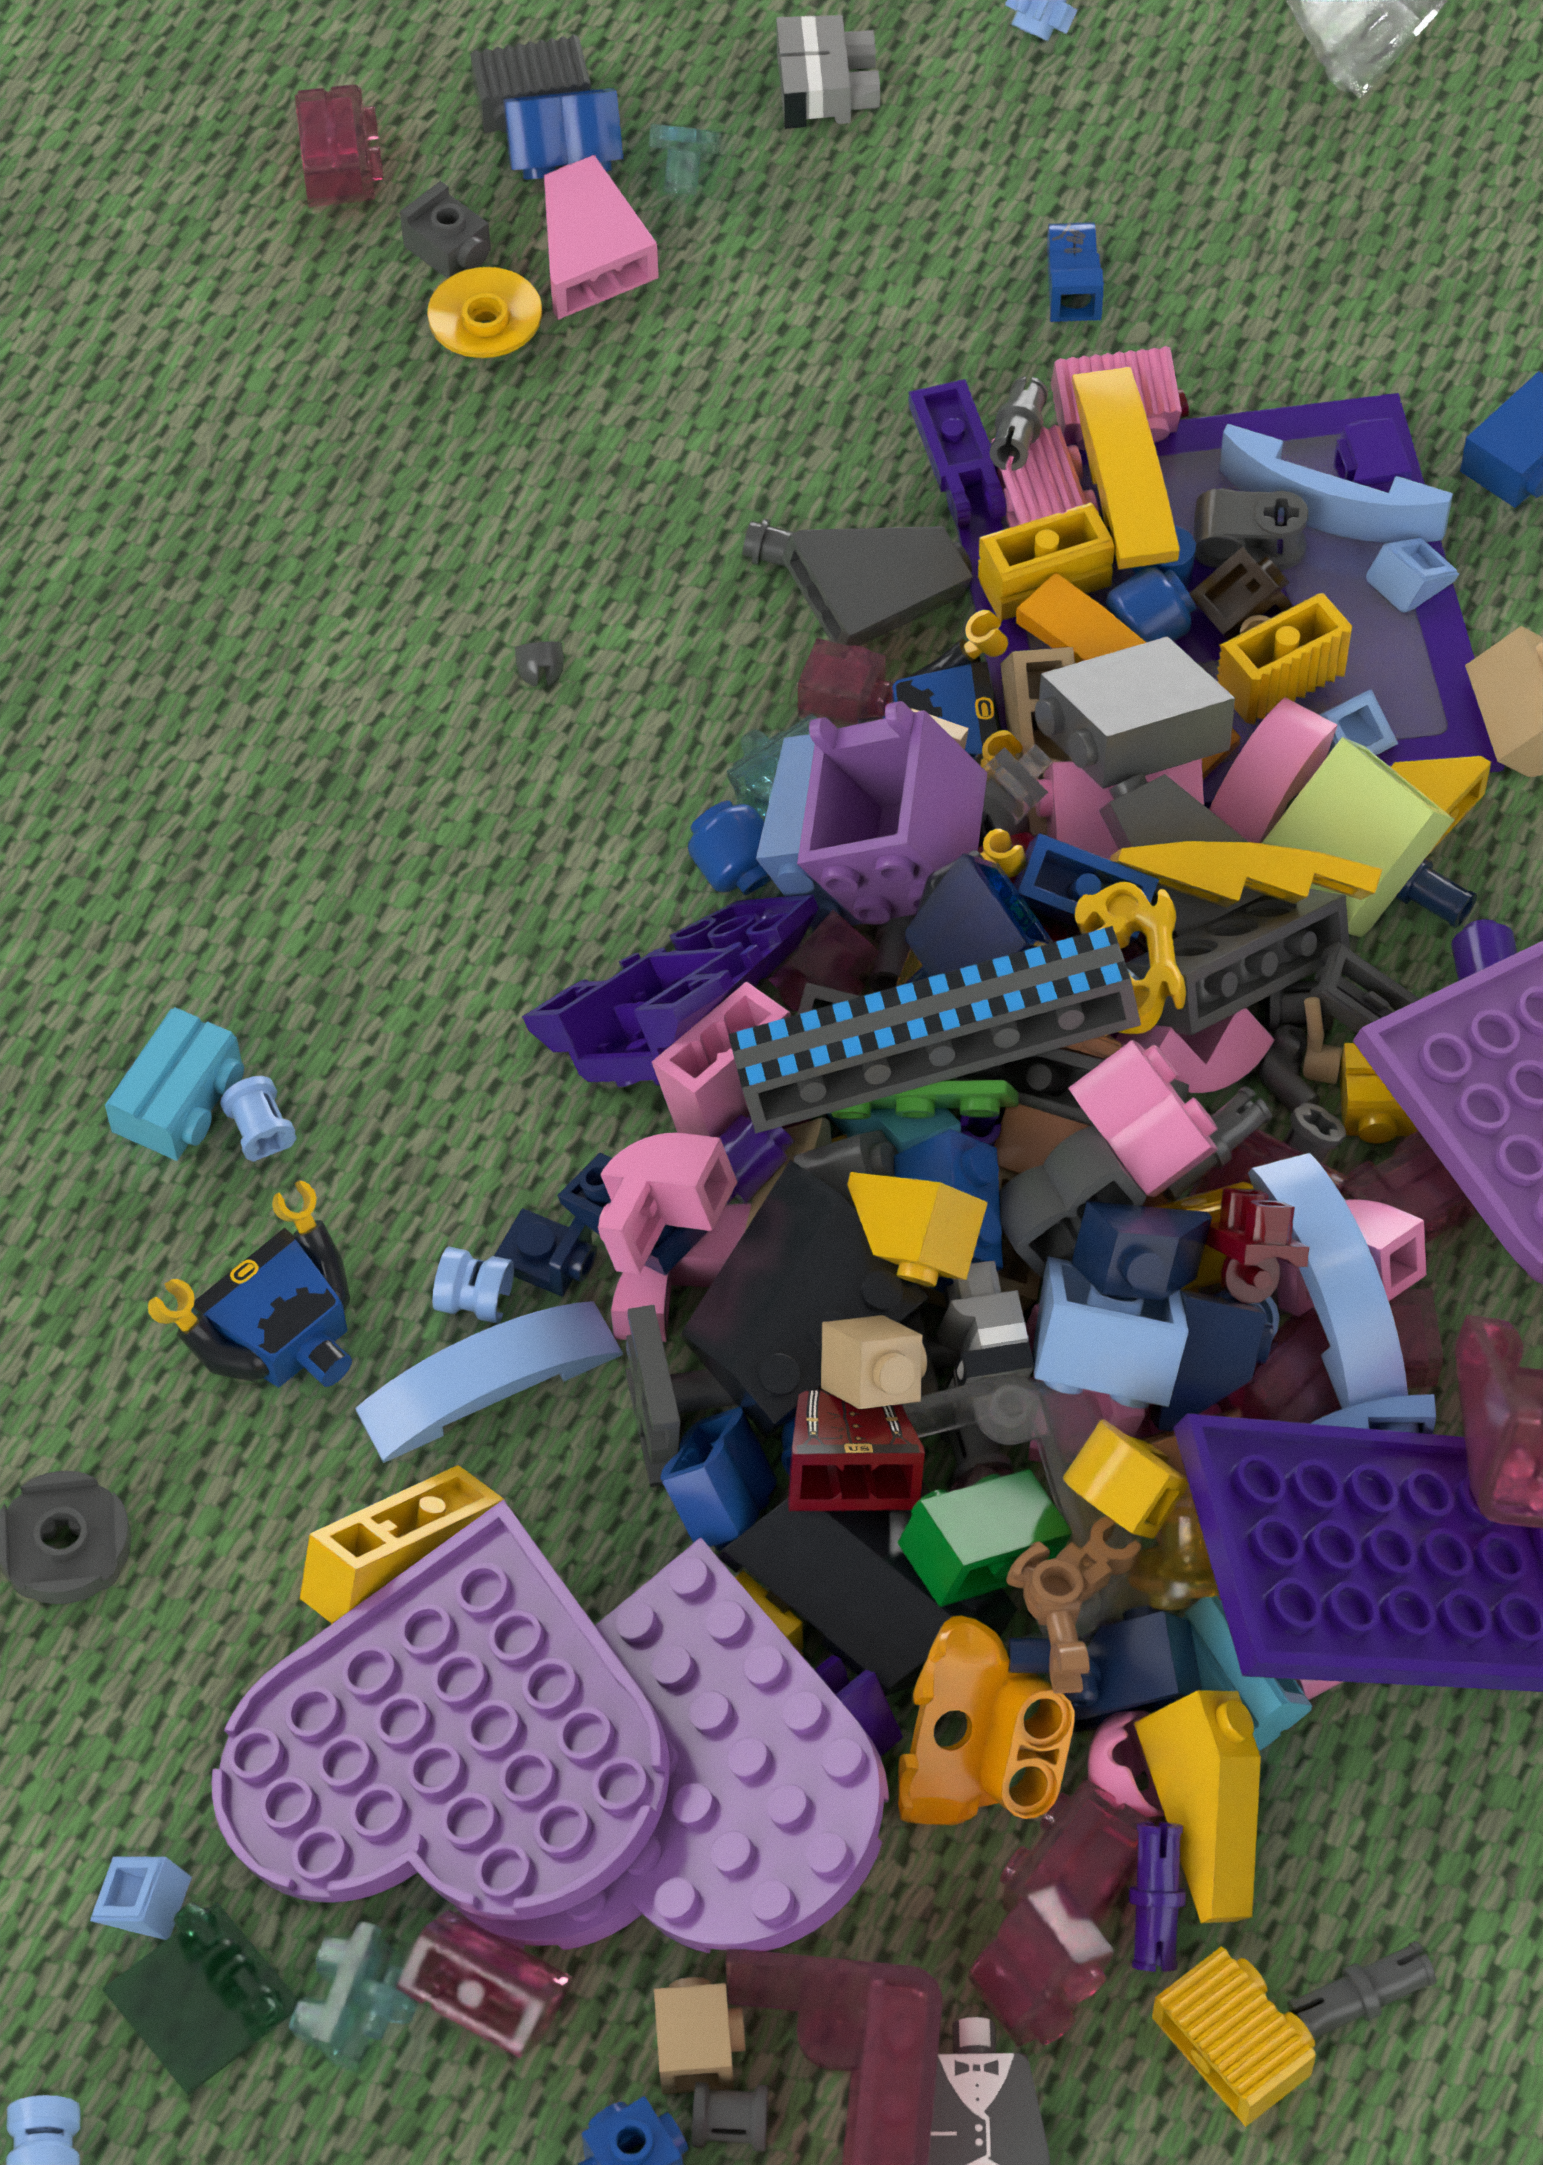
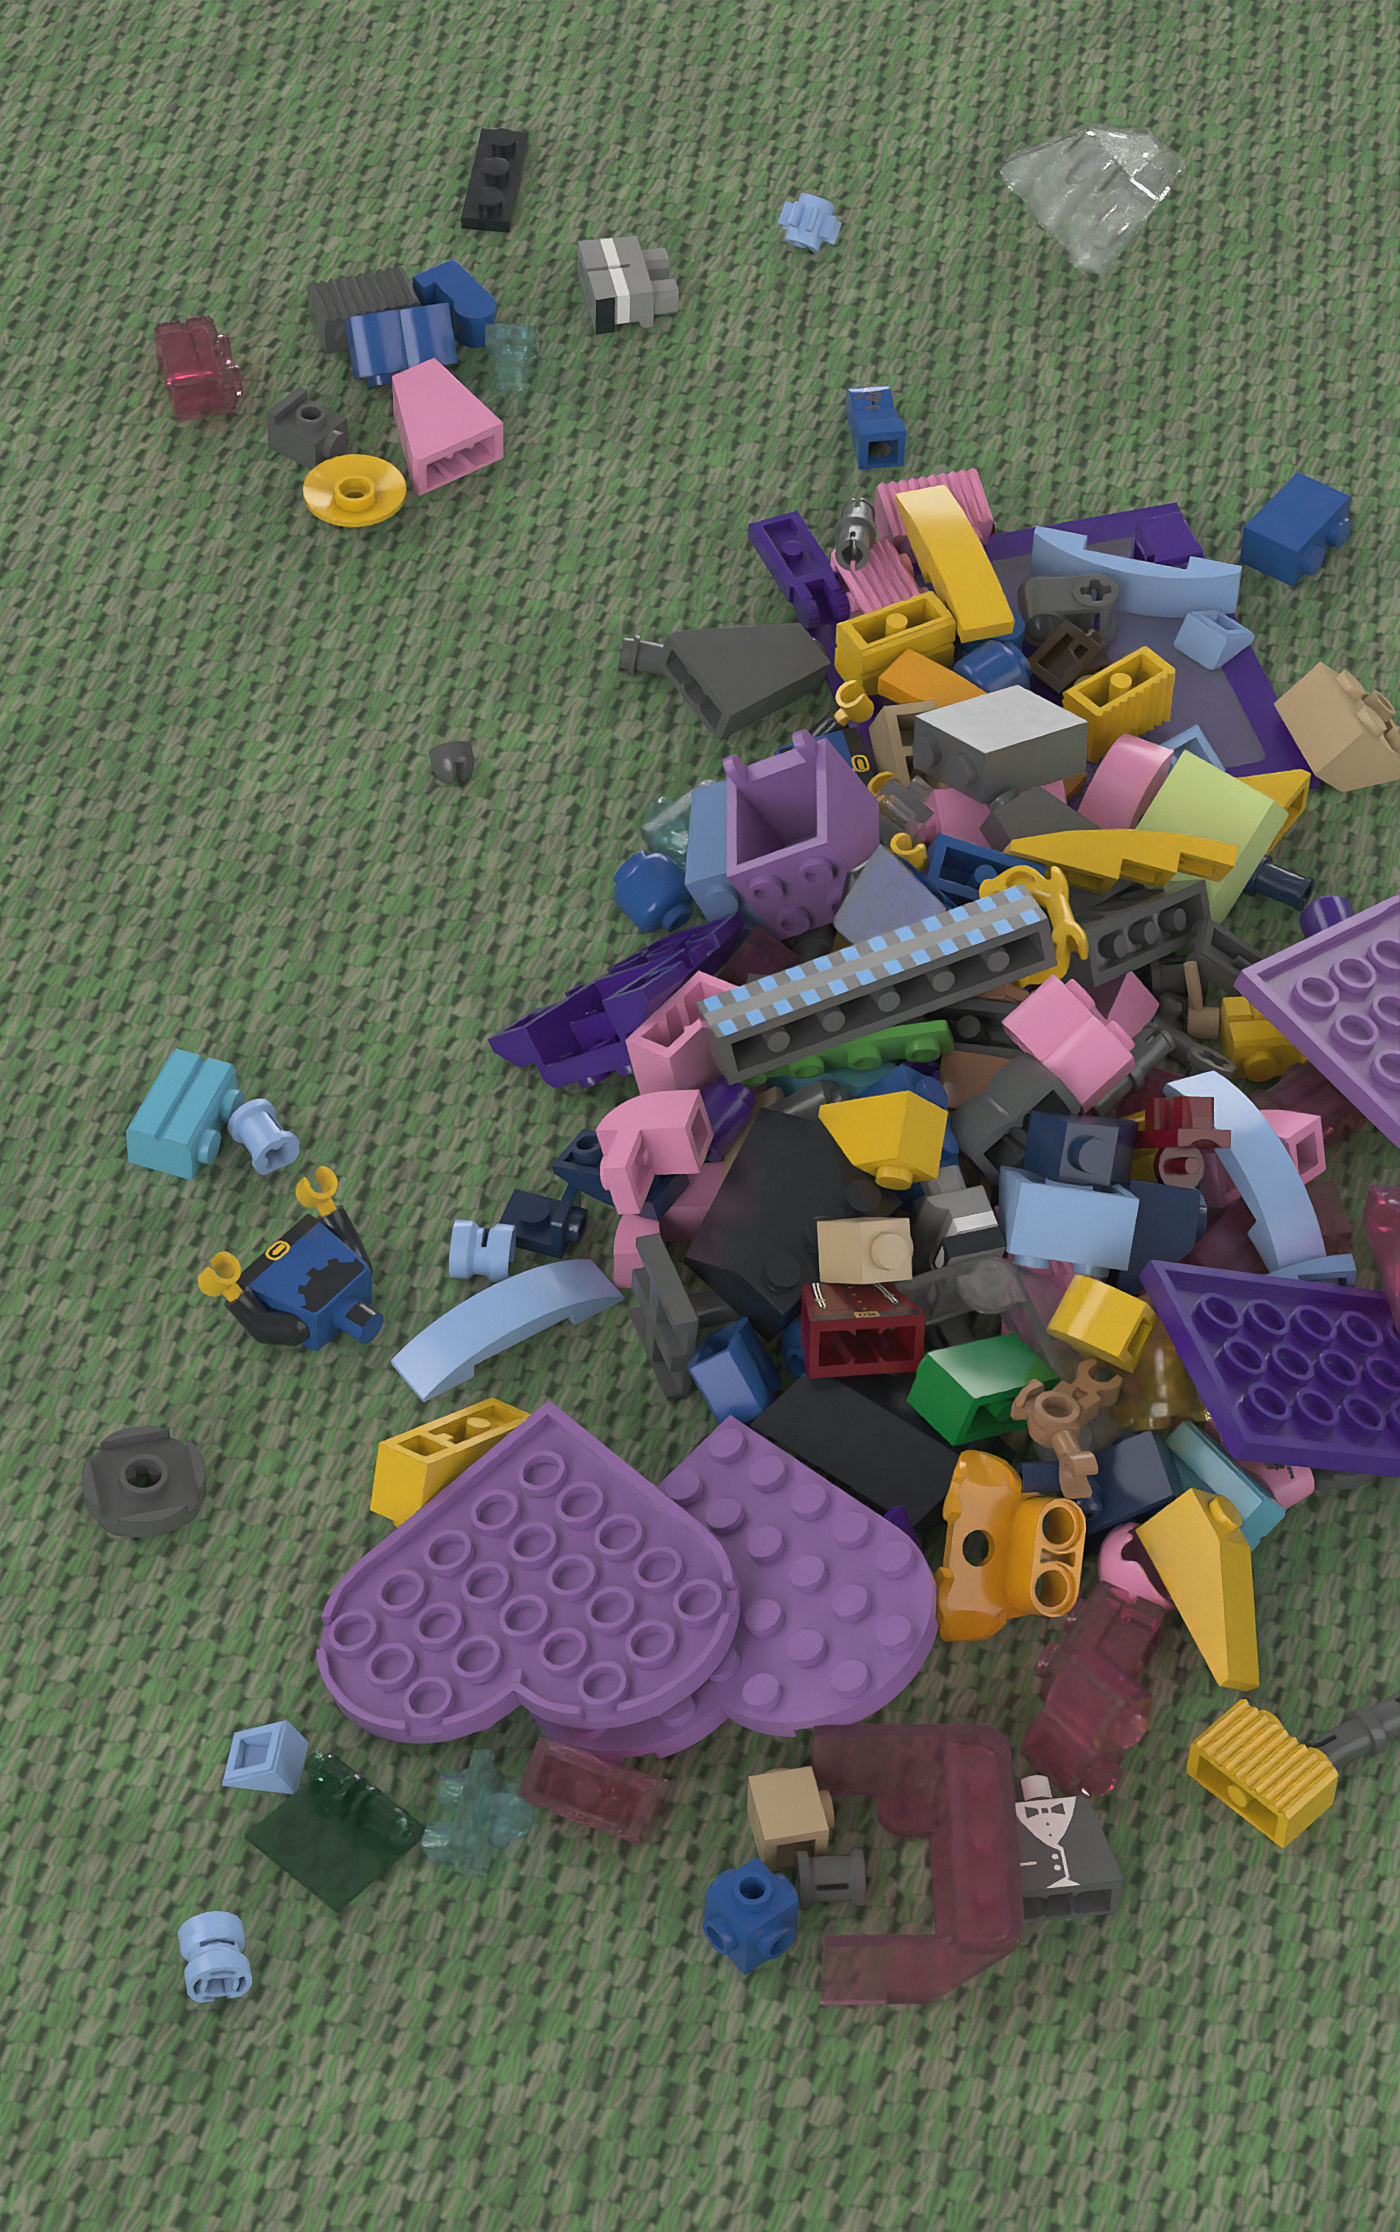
camera: 10 degrees left, 10 degrees down
(638, 77) = (468, 300): none -> blue leg
(843, 684) = (720, 740): clear pink brick -> none
(1157, 1896) = (1177, 1667): dark purple pin -> none

